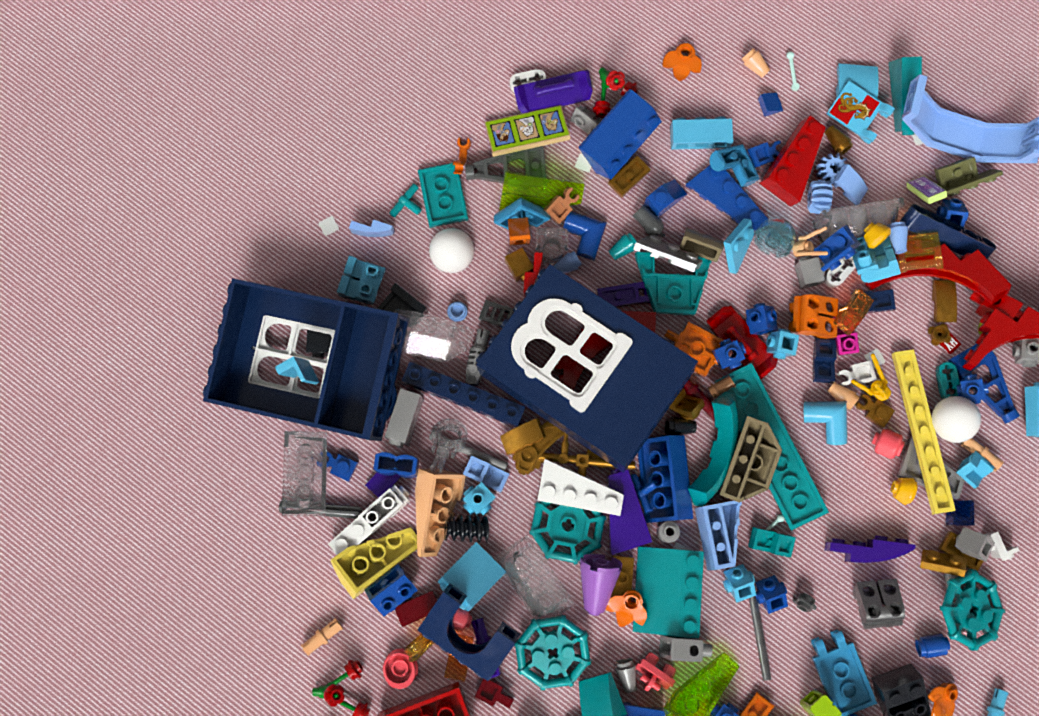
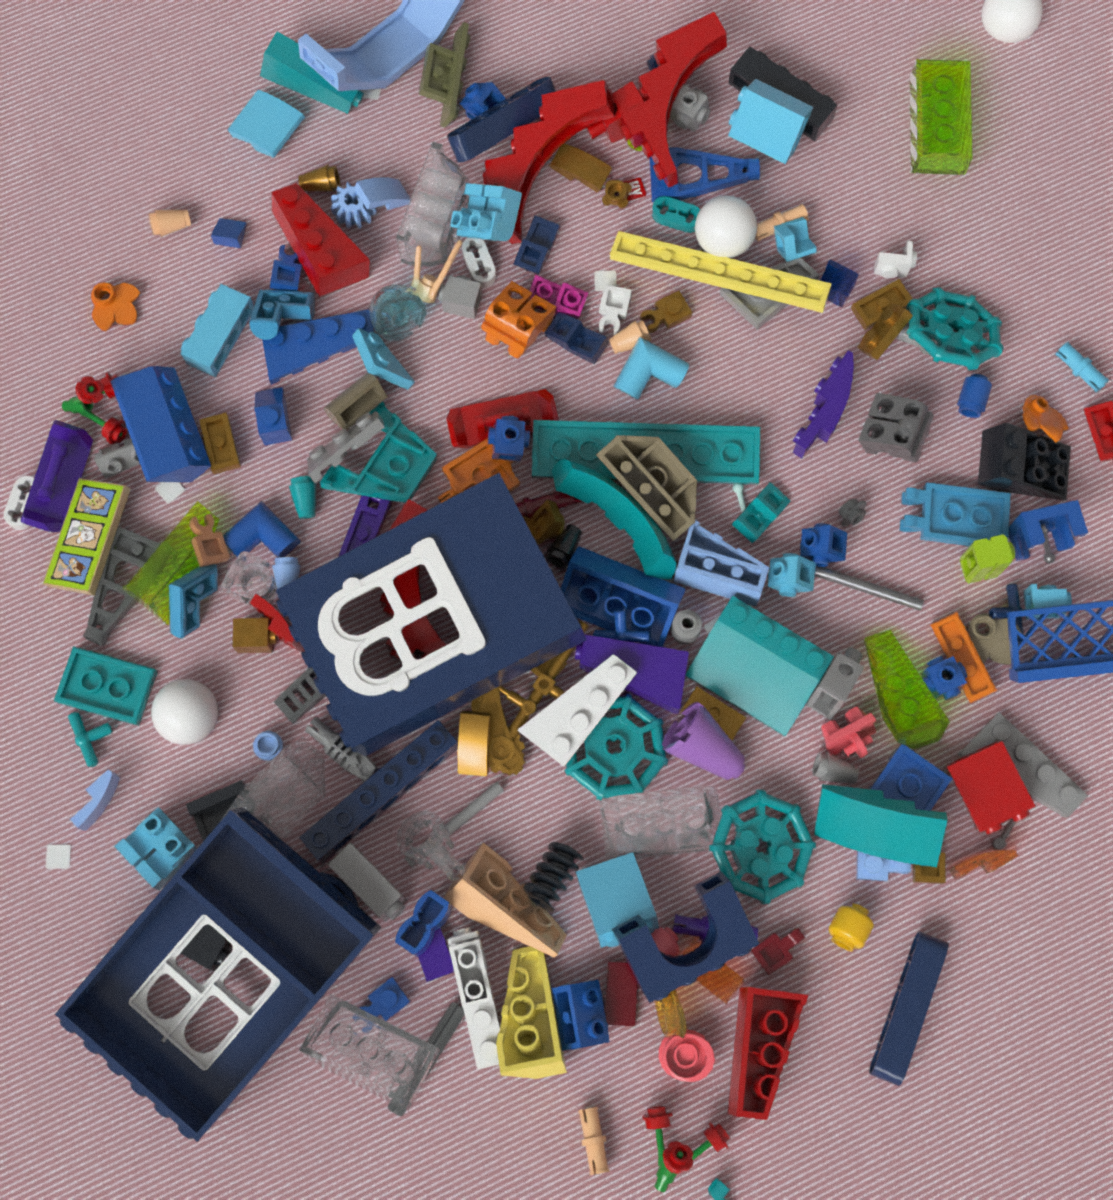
camera: 60 degrees left, 5 degrees down
(298, 367) = (224, 982): medium azure panel -> none
(462, 156) = (70, 634): orange arm -> none
(482, 493) = (522, 831): medium azure brick -> none
(486, 473) = (496, 816): light blue slope -> none
(519, 231) = (211, 612): orange slope -> none
(626, 610) = (757, 727): orange plate -> none
(649, 221) = (290, 448): dark grey piece -> none
(721, 386) = (543, 470): medium nougat pin -> none
(761, 319) = (487, 380): blue brick -> none
(782, 343) = (530, 372): medium azure brick -> none
(795, 86) = (225, 192): light aqua hinge -> none
(819, 196) = (376, 235): light blue gear -> none
(838, 246) = (449, 242): blue bracket -> none
(854, 312) = (538, 272): clear orange slope -> none
(857, 109) = (297, 140): flag -> none
(876, 234) = (460, 194): yellow cone -> none
(878, 388) = (643, 293): yellow plant -> none
(888, 443) = (714, 318): coral head -> none
(898, 237) = (475, 171): light blue cone -> none
(904, 490) = (778, 329): yellow cone -> none
(921, 245) = (500, 156): clear yellow plate -> none
(926, 189) = (438, 114): tile -> none
(972, 380) = (690, 189): blue brick -> none
(974, 544) = (880, 284): light grey brick -> none

